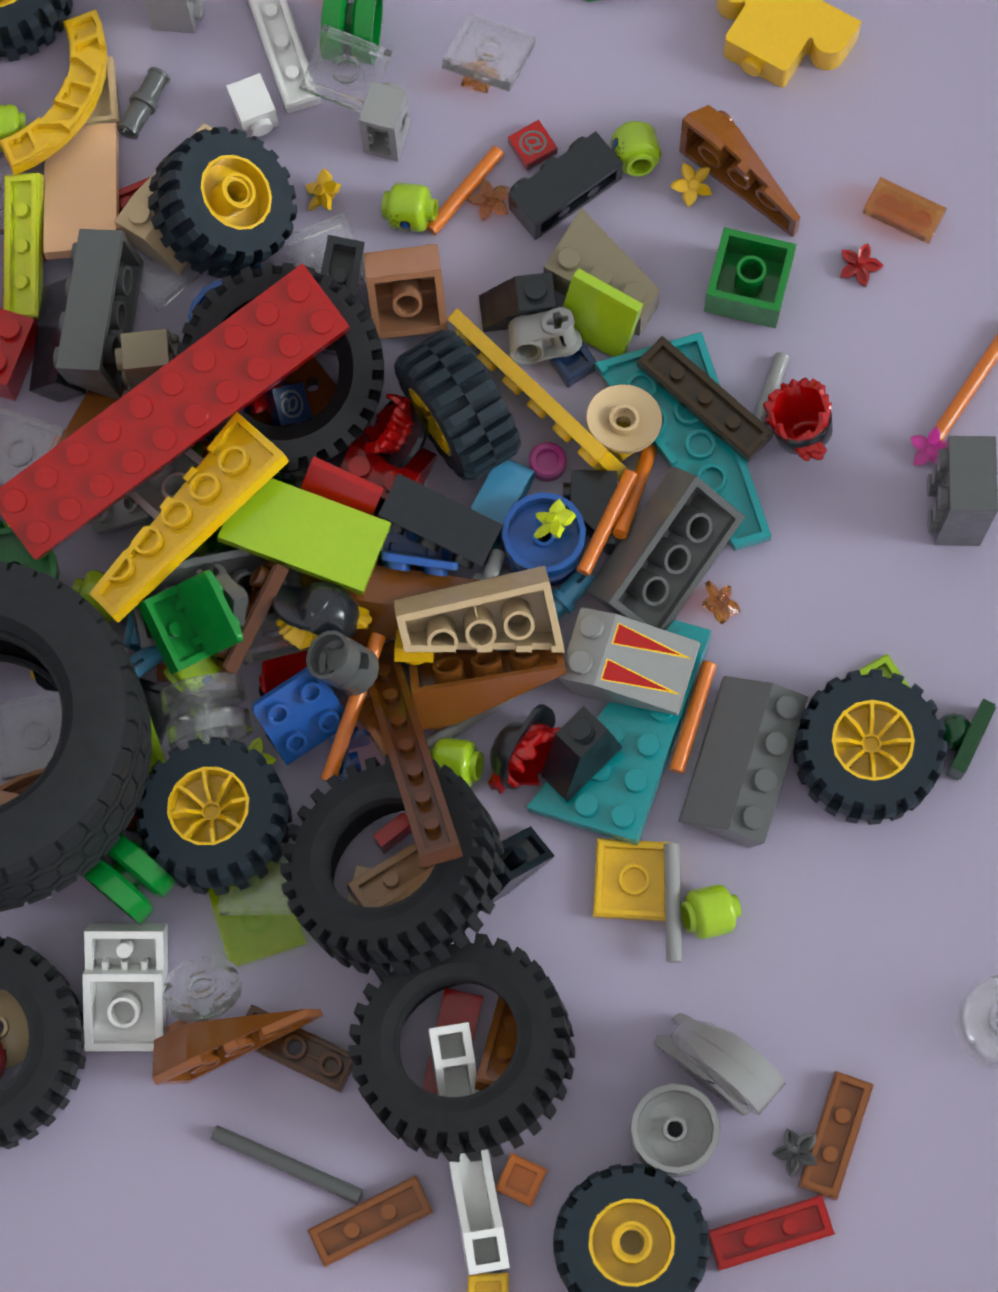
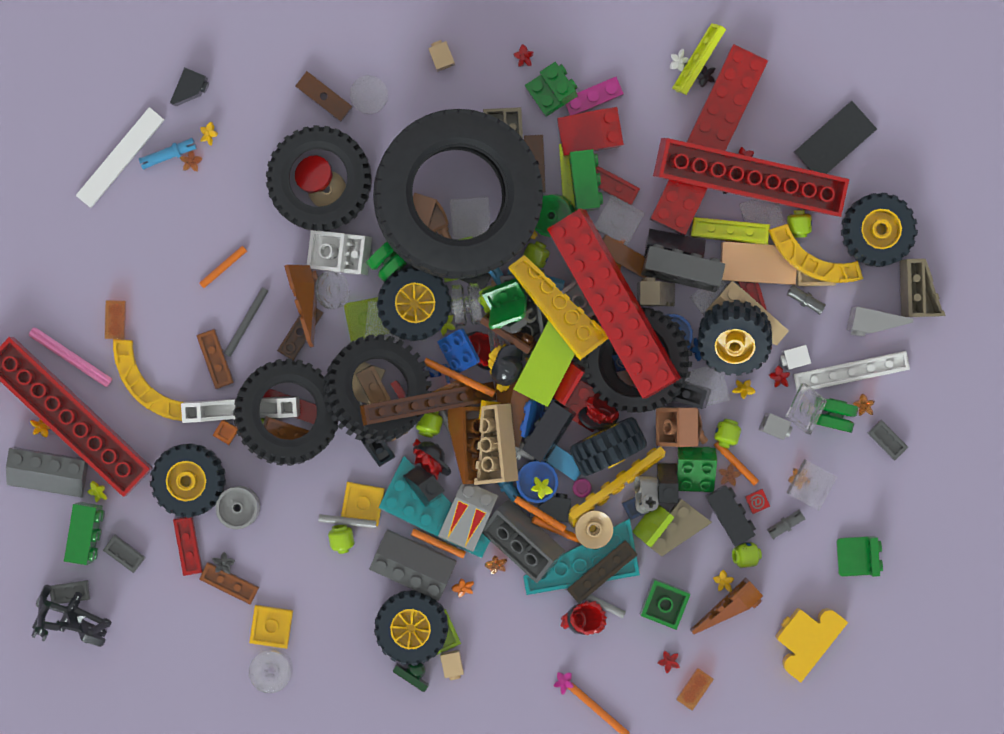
camera: 90 degrees right, 15 degrees up
(176, 1227) = (223, 266): none -> orange bar
(293, 131) = (780, 377): none -> red plant
(342, 663) = (478, 375): dark grey wheel -> none
(481, 252) = (696, 469): none -> green bracket
(568, 88) = (786, 524): none -> dark grey pin
(722, 1064) = (263, 533): light grey animal -> none
(775, 660) = (463, 587): none -> orange plant
(912, 1036) = (271, 626): none -> yellow tile
(931, 661) = (452, 664): none -> tan brick
(963, 491) = (532, 693): dark grey brick -> none

